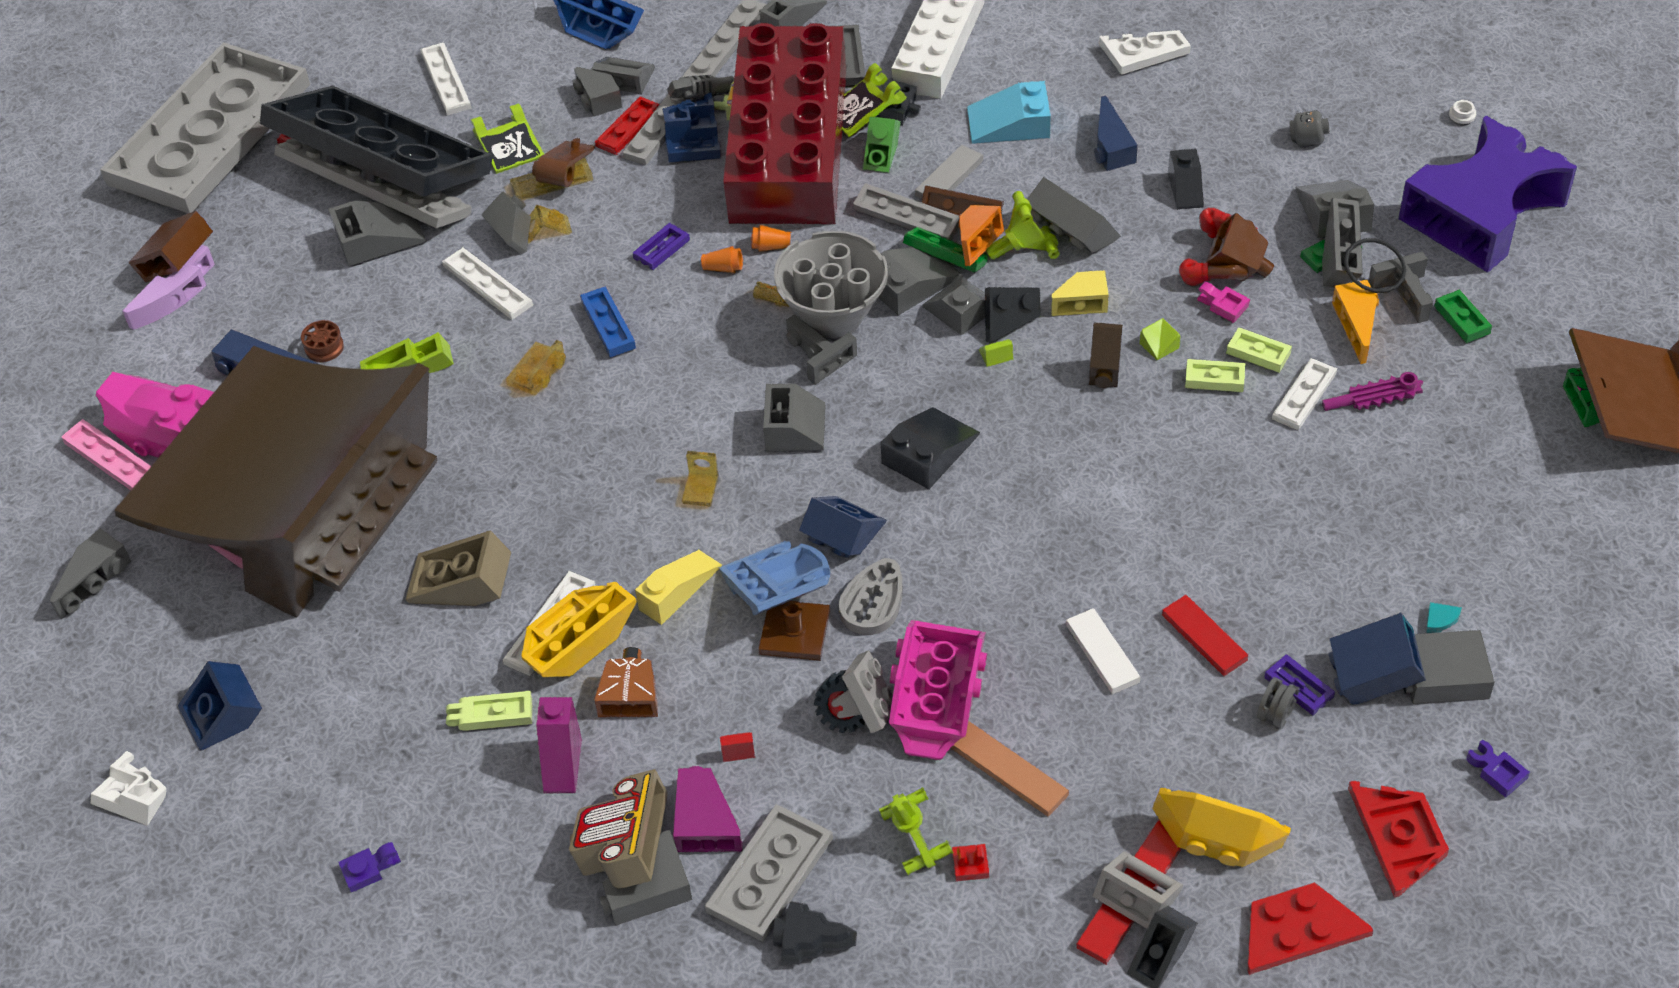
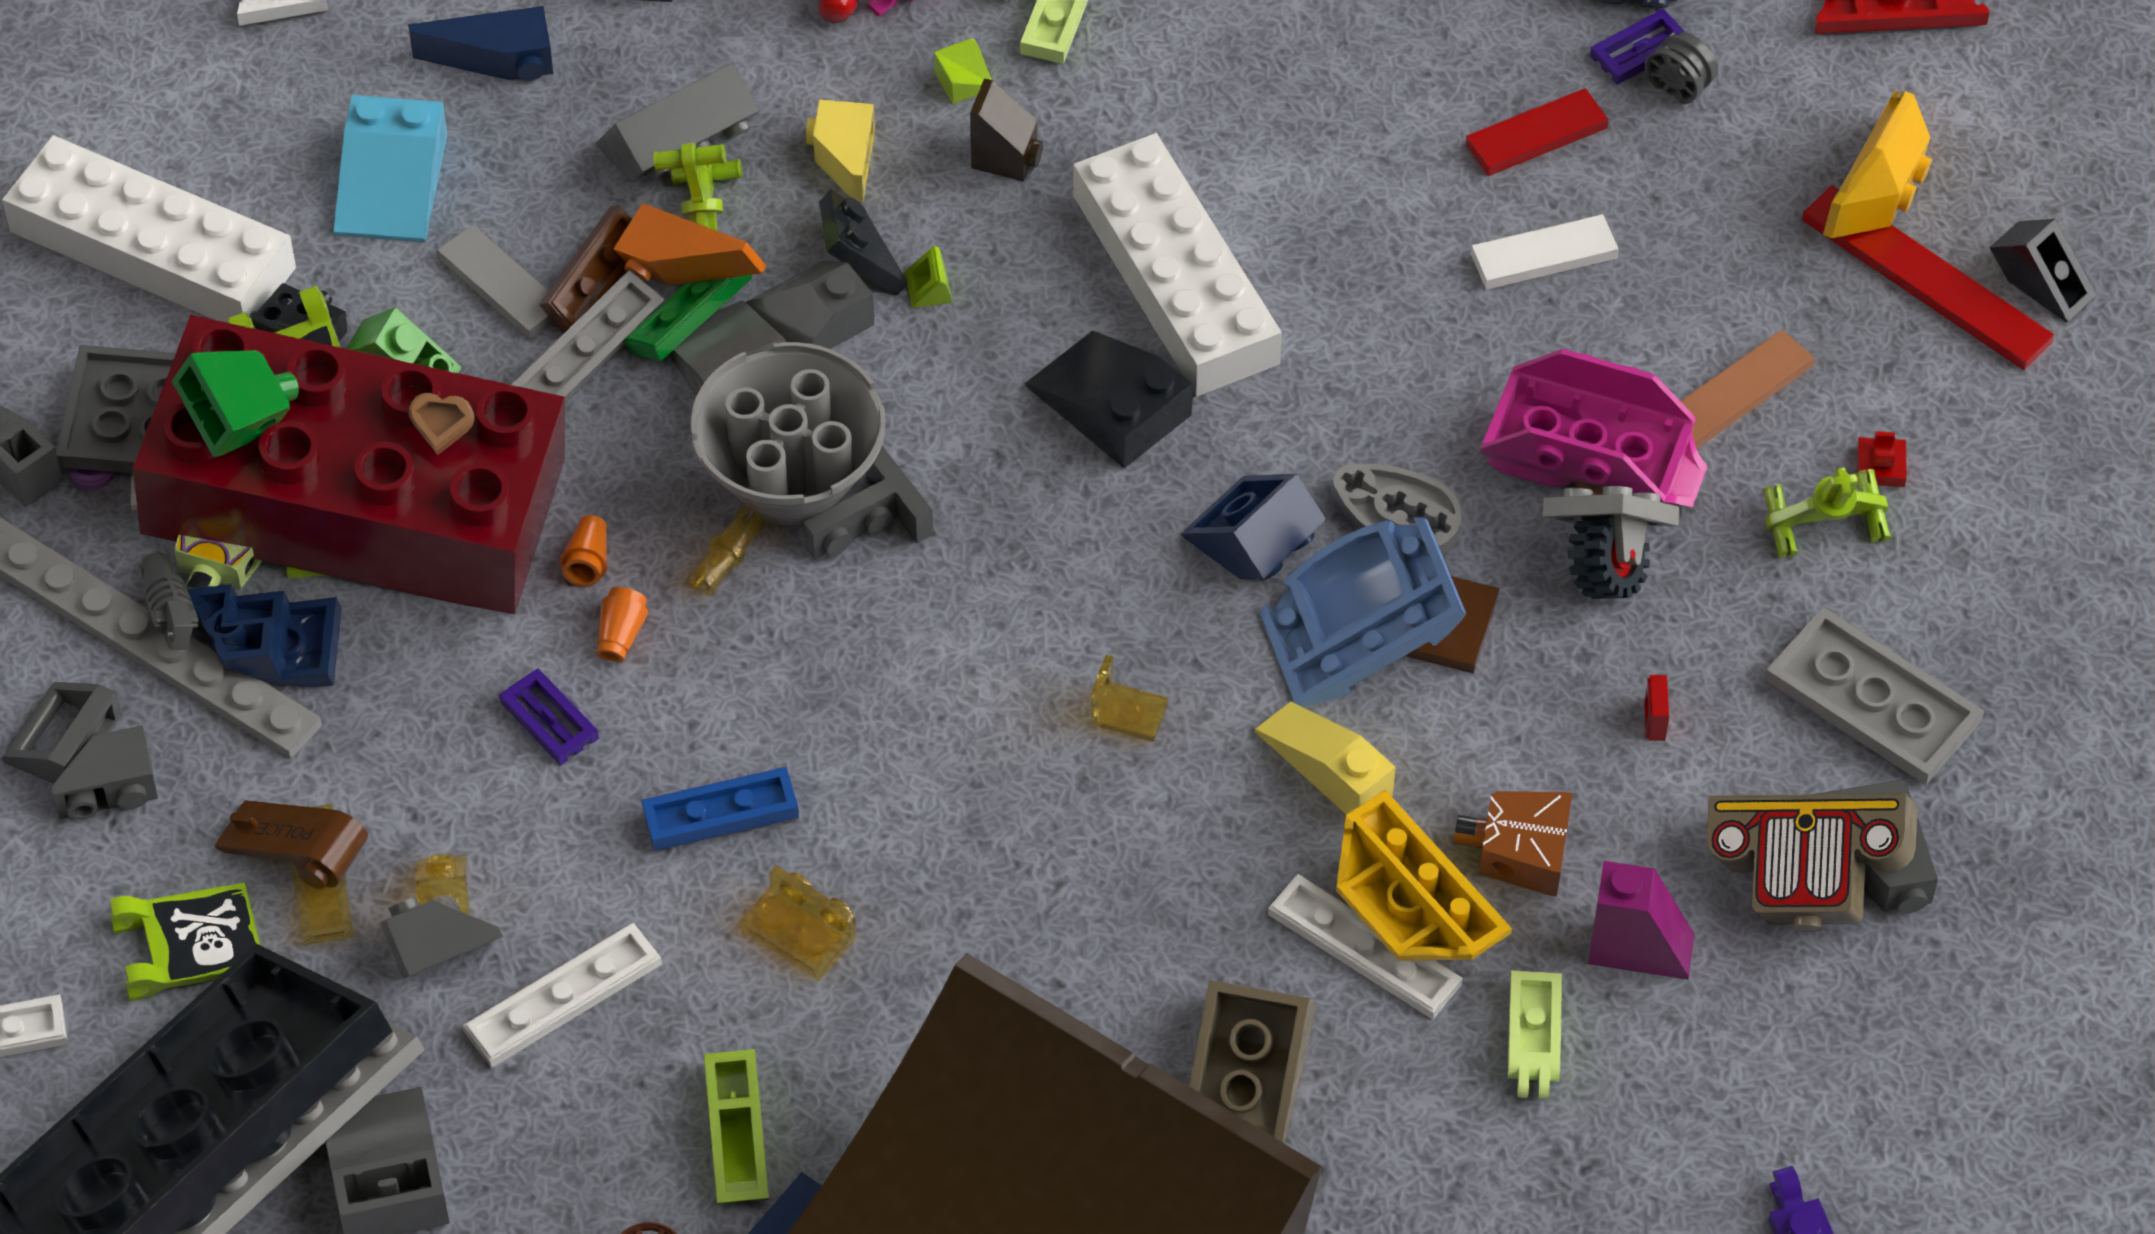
camera: 85 degrees left, 5 degrees up
(626, 126) = (209, 741): red tile -> none
(703, 815) = (1764, 757): magenta slope -> none
(775, 40) = (233, 396): none -> green torso
(787, 125) = (441, 420): none -> medium nougat tile
(793, 419) = (1024, 566): dark grey slope -> none
(809, 934) = (1982, 661): black rock -> none
(1031, 457) = (1177, 264): none -> white brick
(1131, 896) = (1972, 284): light grey tile -> none
(1298, 926) = (2020, 129): red wing -> none

